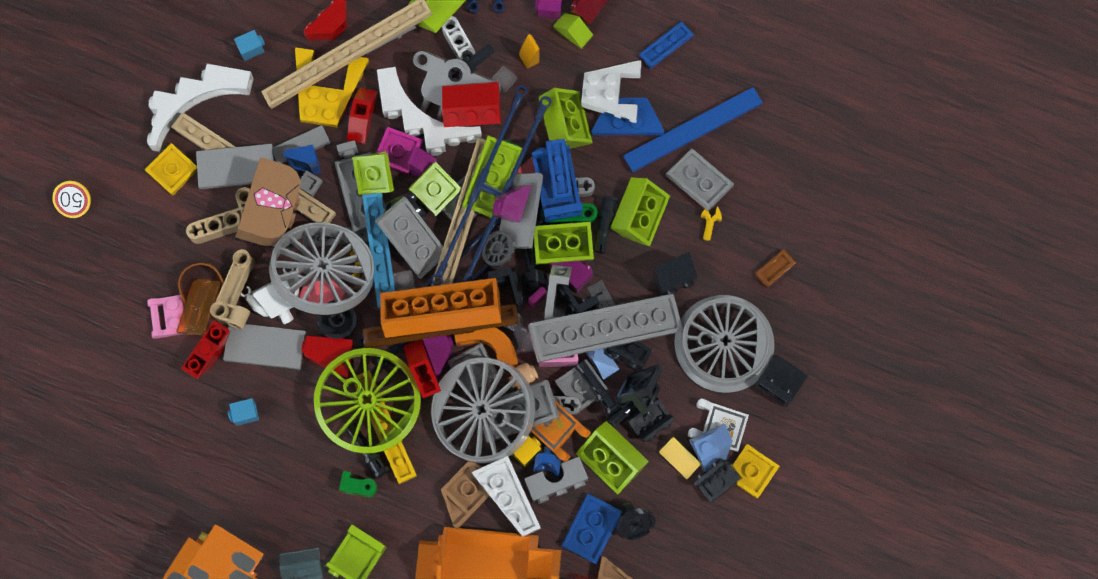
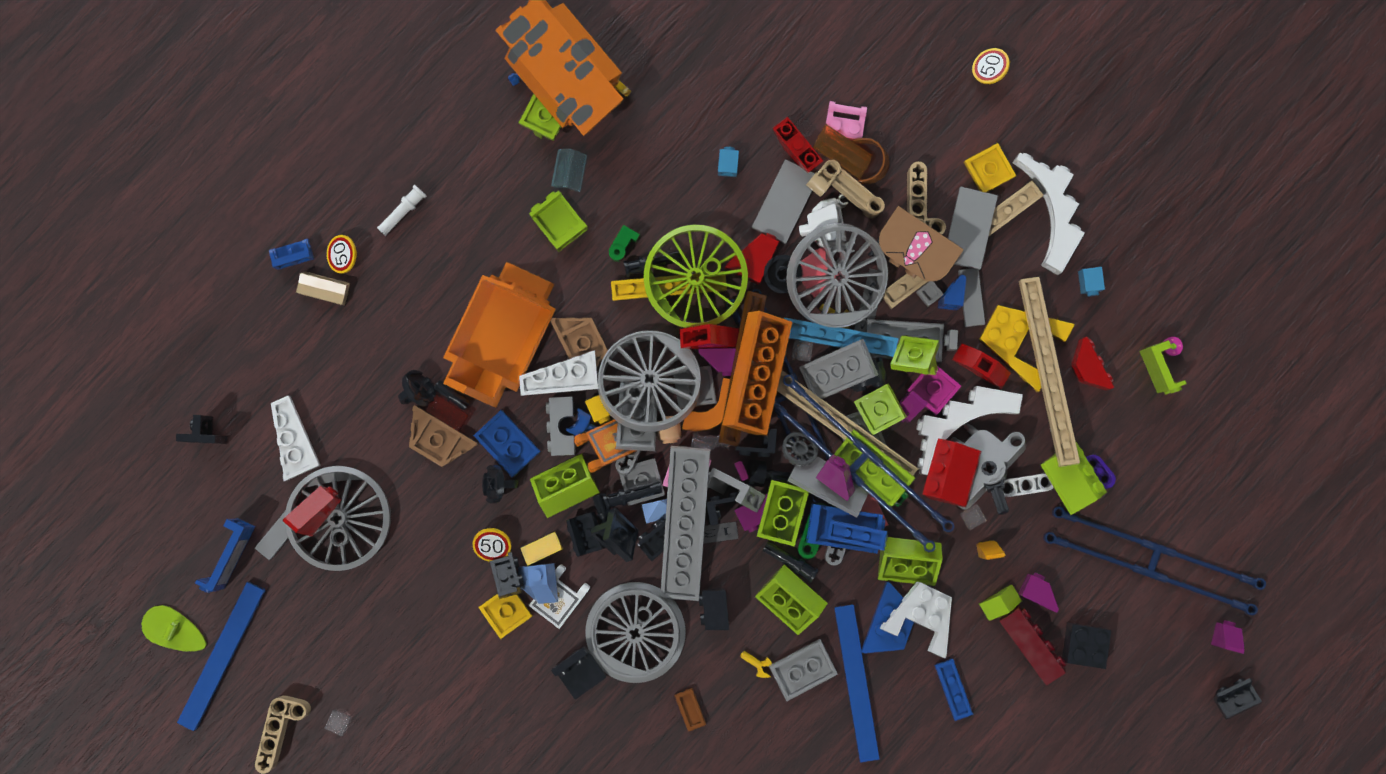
camera: 110 degrees right, 10 degrees up
(694, 506) = (491, 544): none -> piece

